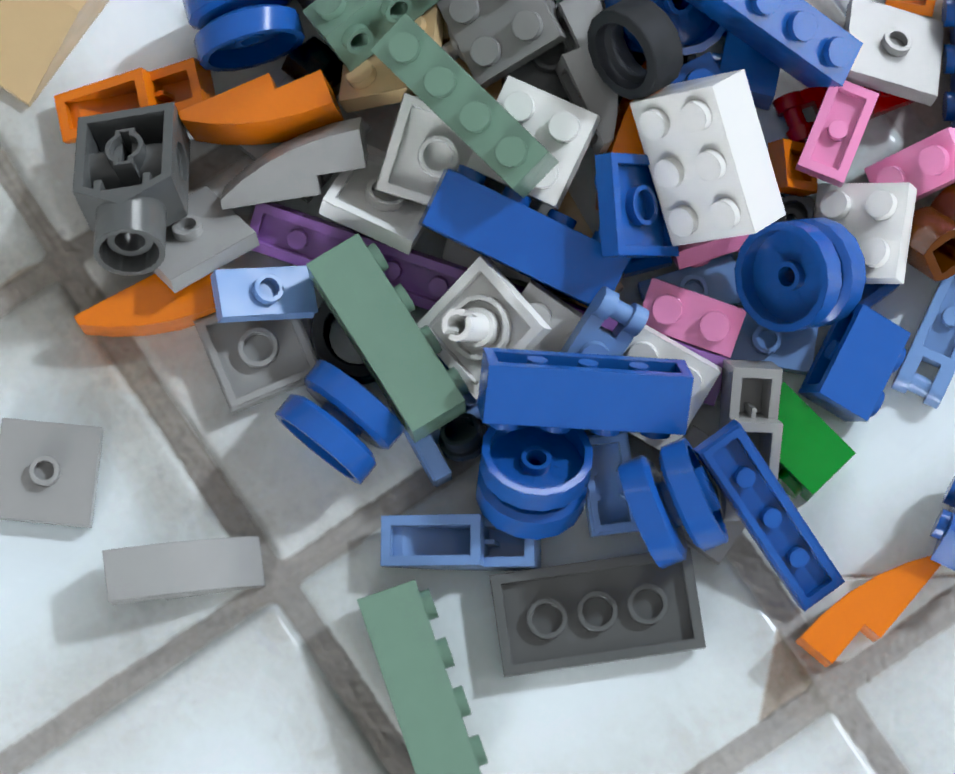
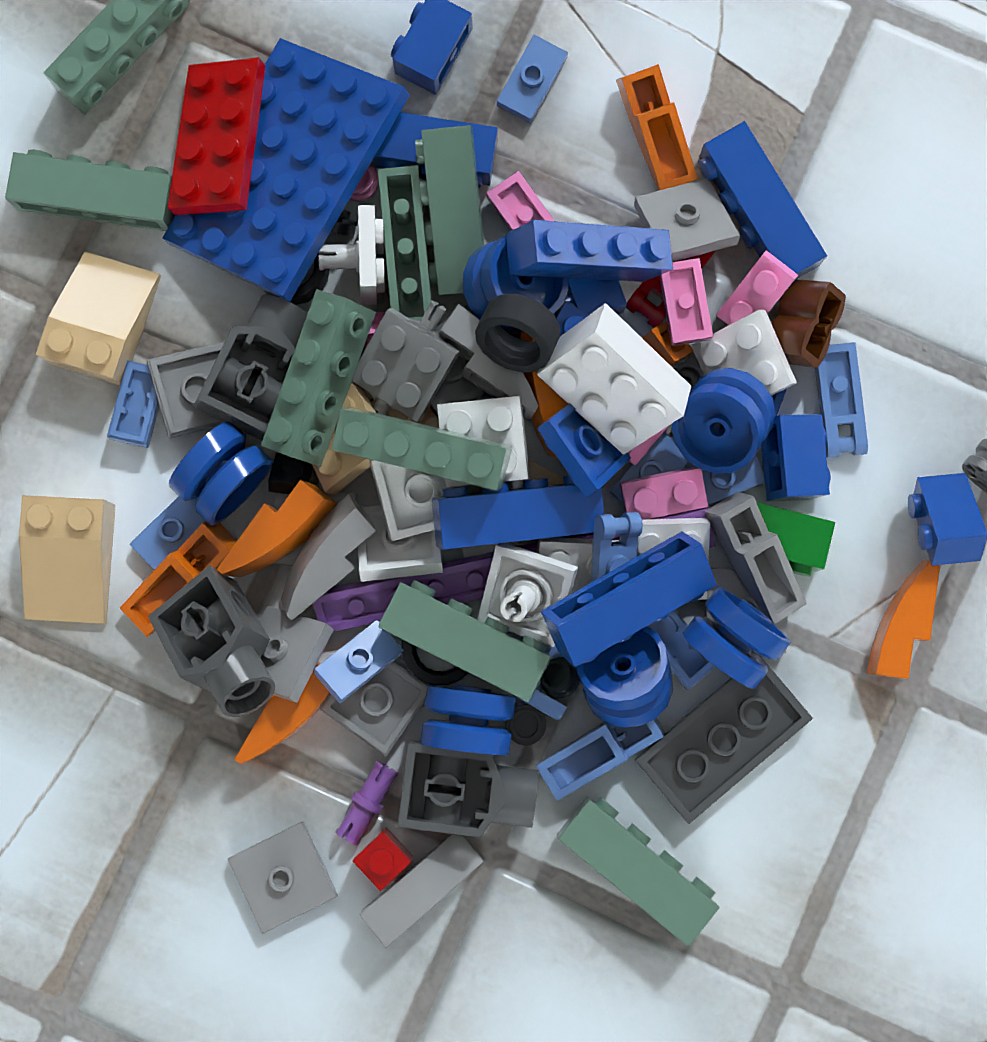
camera: 30 degrees left, 5 degrees up
(151, 47) = (167, 531): none -> medium blue plate
(162, 513) = (383, 859): none -> red brick
(181, 449) = (366, 802): none -> medium lavender pin
(290, 493) = (464, 792): none -> dark grey brick
(397, 471) = (527, 725): none -> black plate
(769, 515) = (802, 601): blue tile -> none

